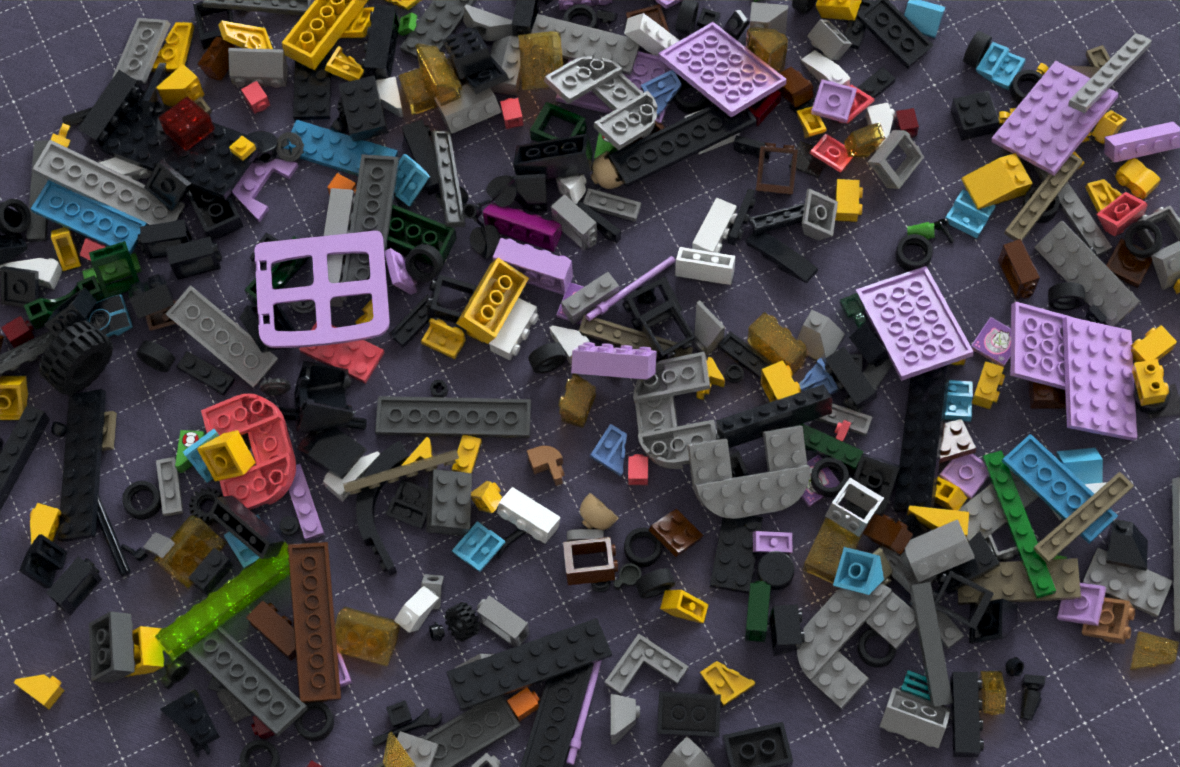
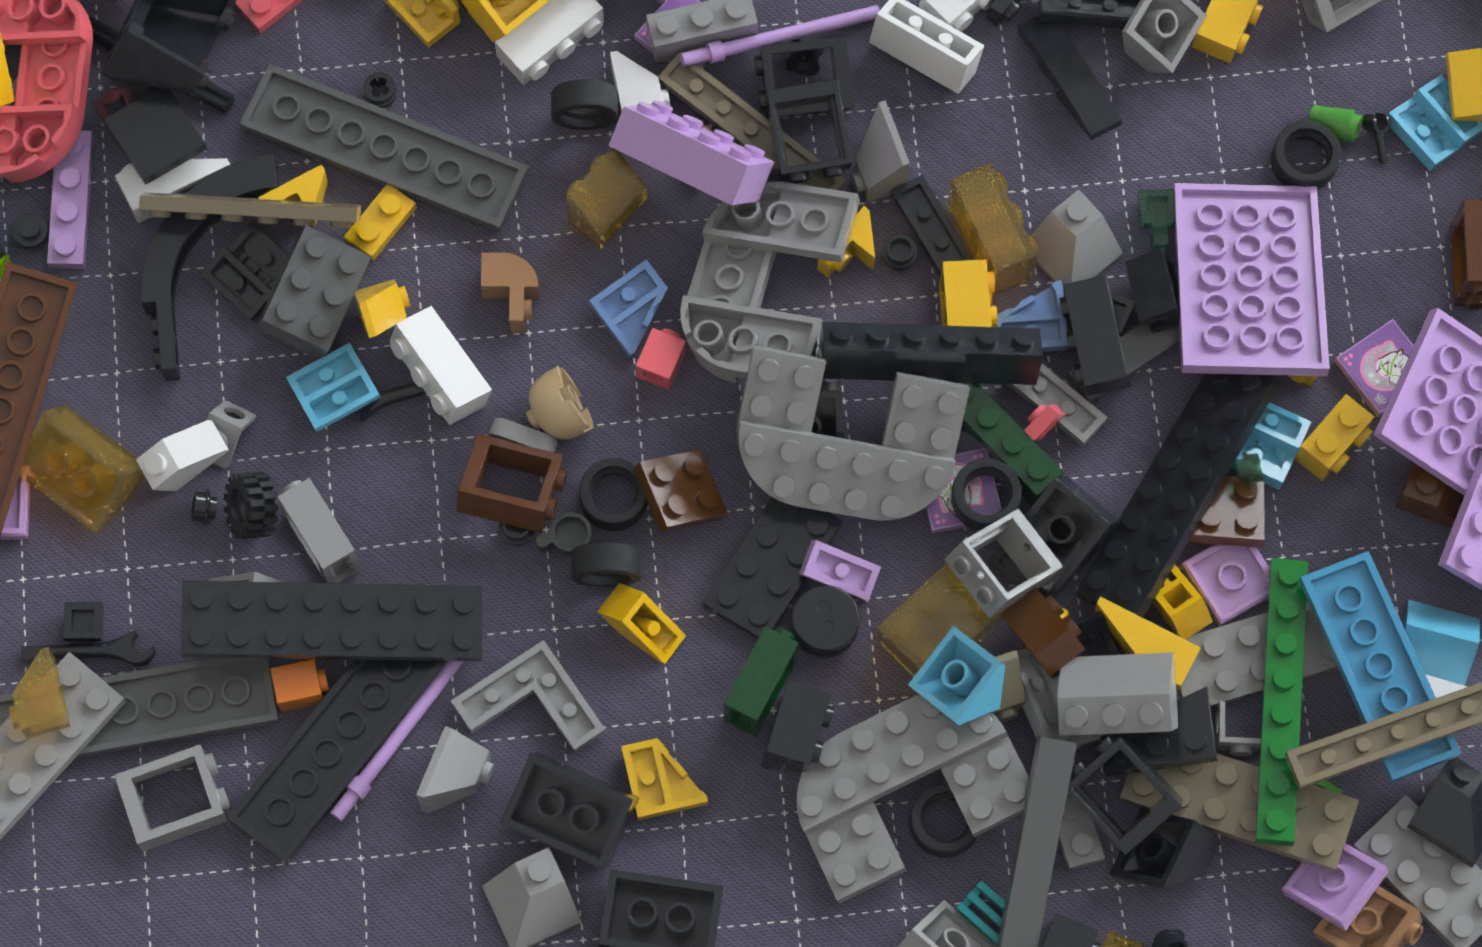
camera: 15 degrees right, 5 degrees up
(953, 415) = (1249, 468): none -> clear green plate

